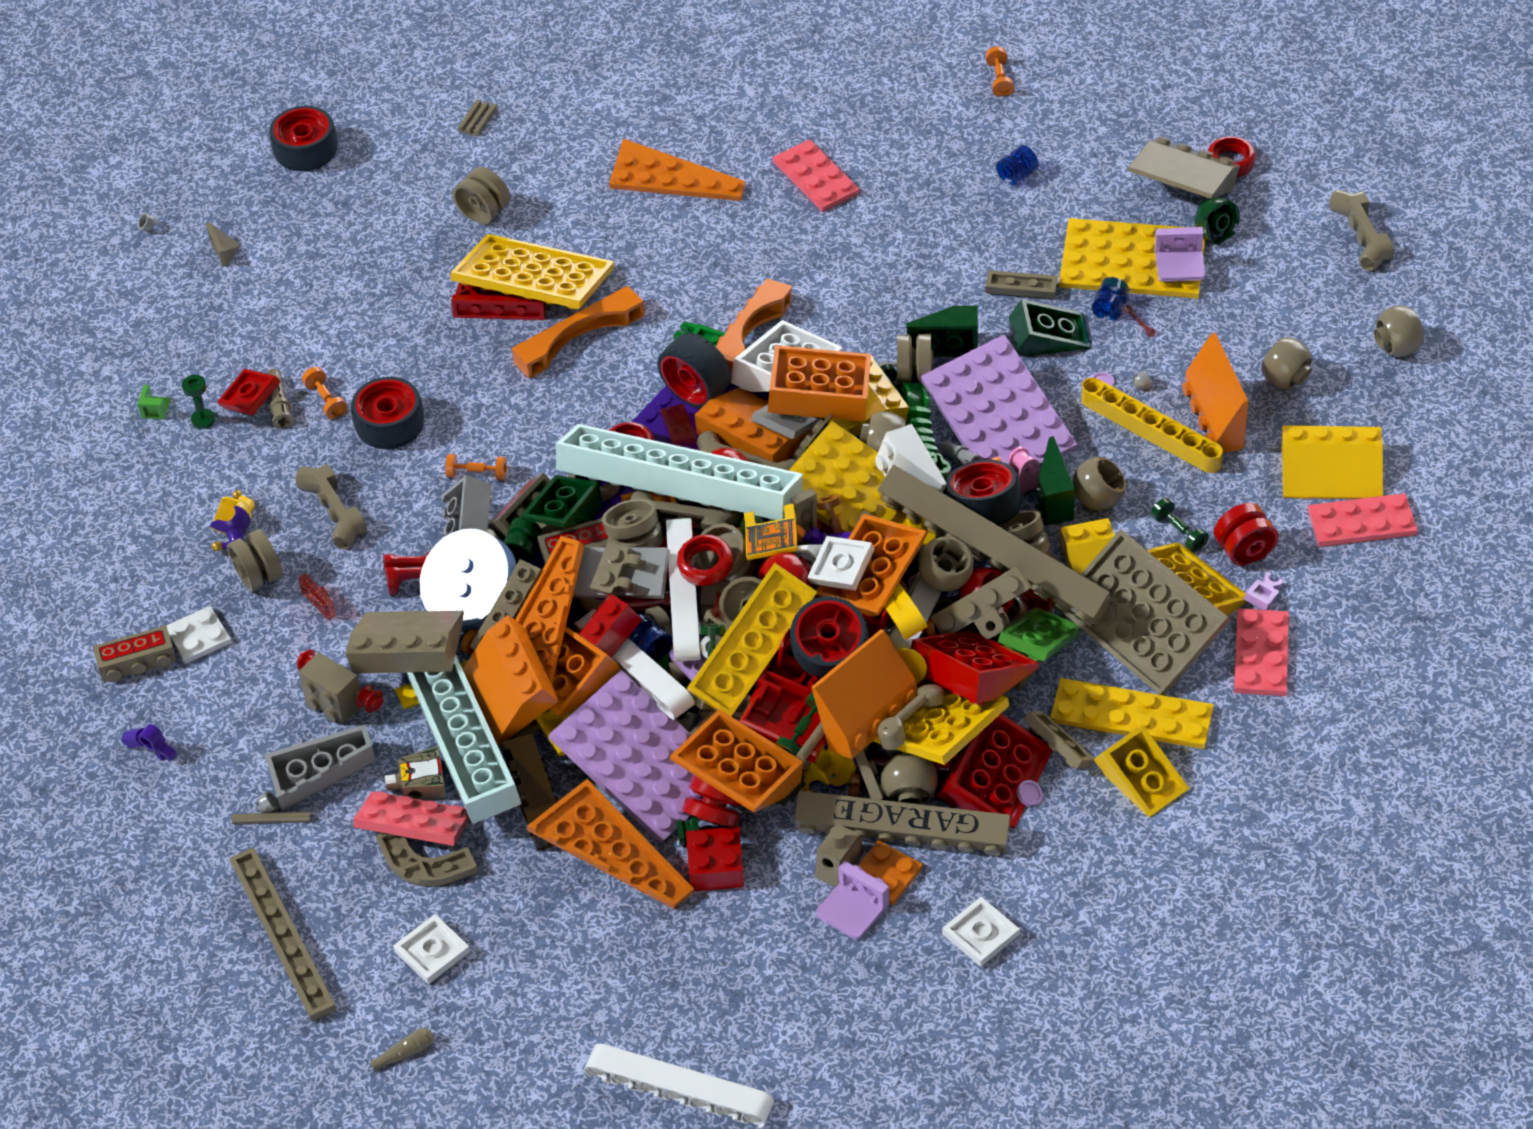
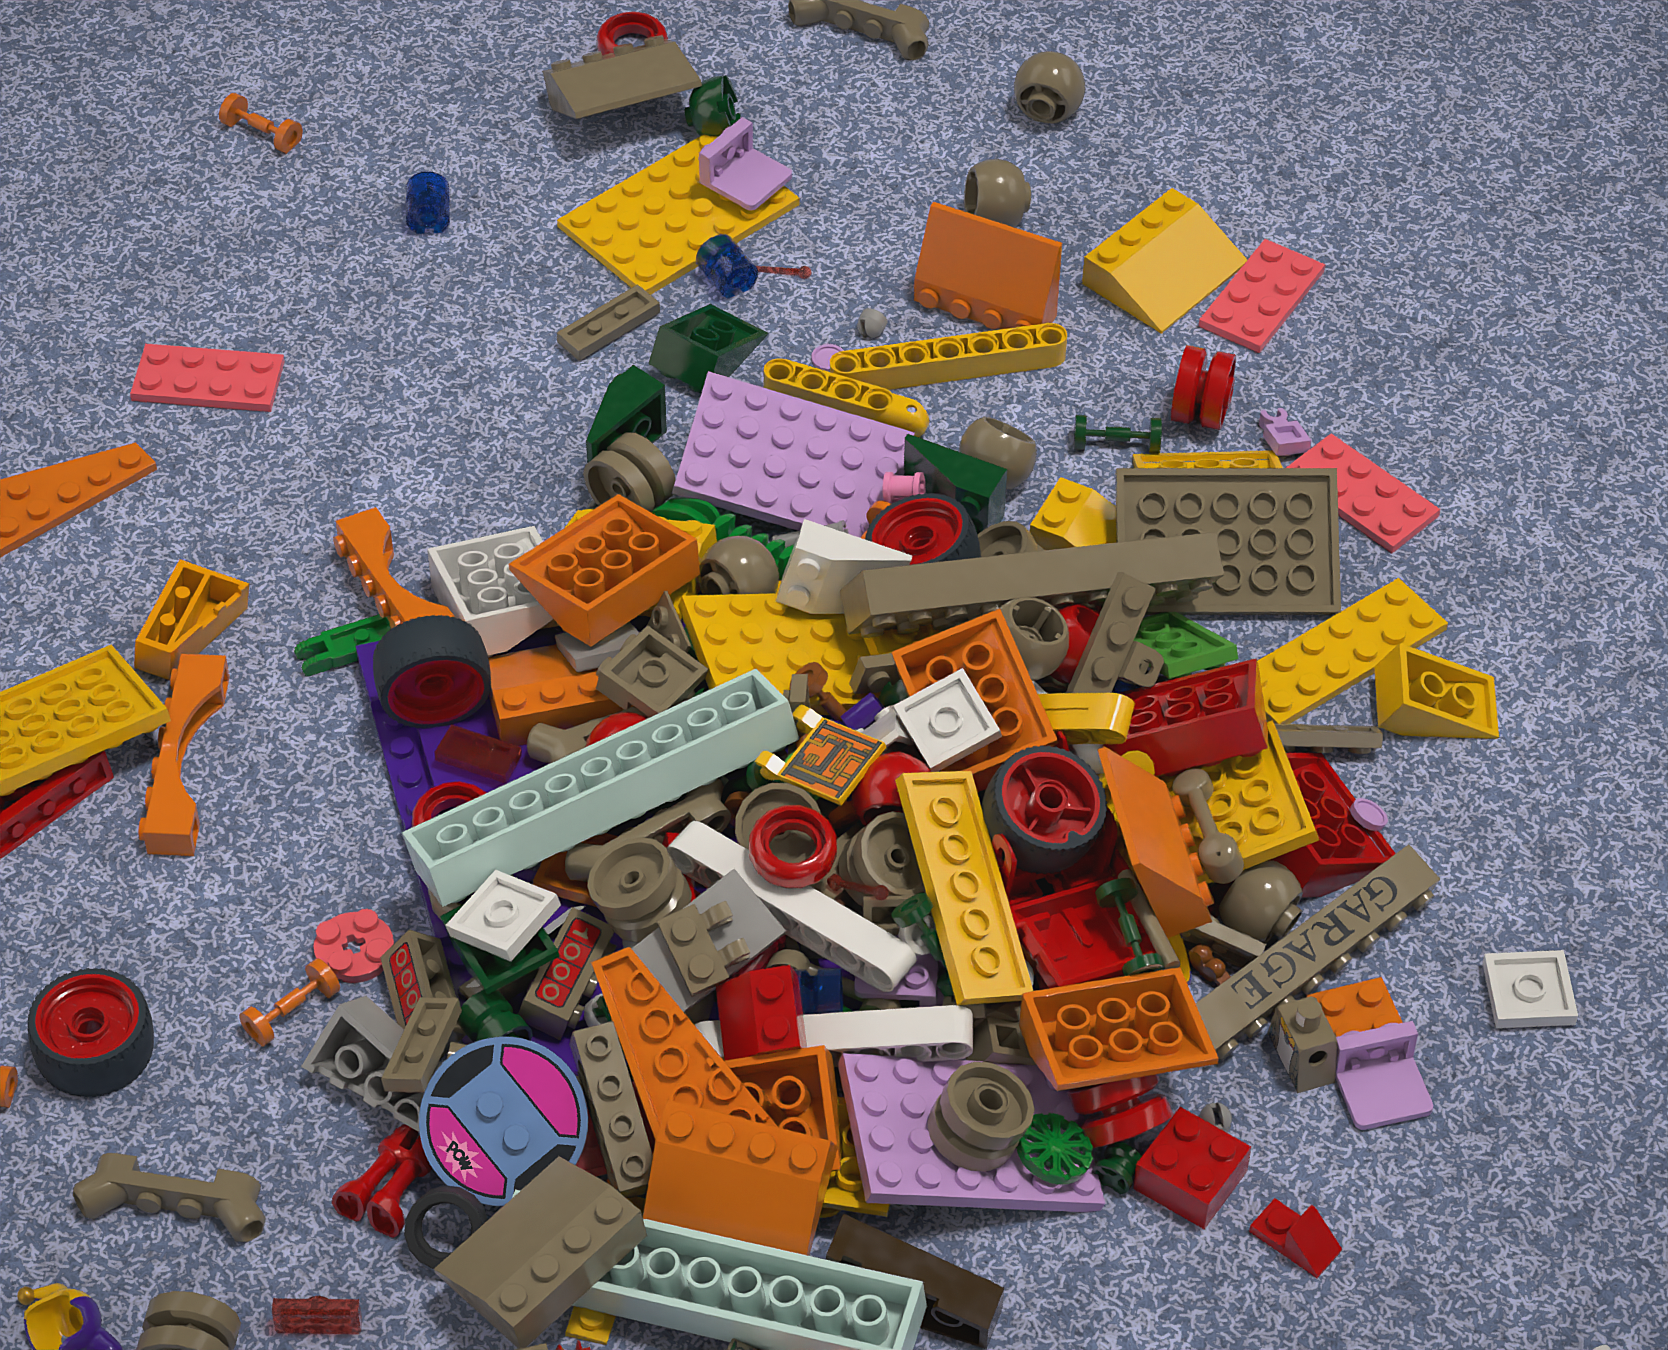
camera: 55 degrees left, 0 degrees up
(391, 593) = (413, 1223): none -> black tyre
(473, 517) = (421, 1045): none -> dark tan plate
(528, 457) = (349, 927): none -> coral plate
(565, 490) = (503, 915): none -> white plate
(601, 836) = (1057, 1257): orange wing -> none
(636, 745) = (980, 1116): none -> dark tan wheel
(653, 272) = (188, 617): none -> light orange wedge
(662, 793) = (1055, 1149): none -> green wheel
(719, 930) = (1298, 1237): none -> red slope
(765, 854) = (1224, 1115): none -> light grey hinge
(769, 442) = (649, 674): none -> dark tan plate
(1072, 403) = (844, 394): none -> yellow piece

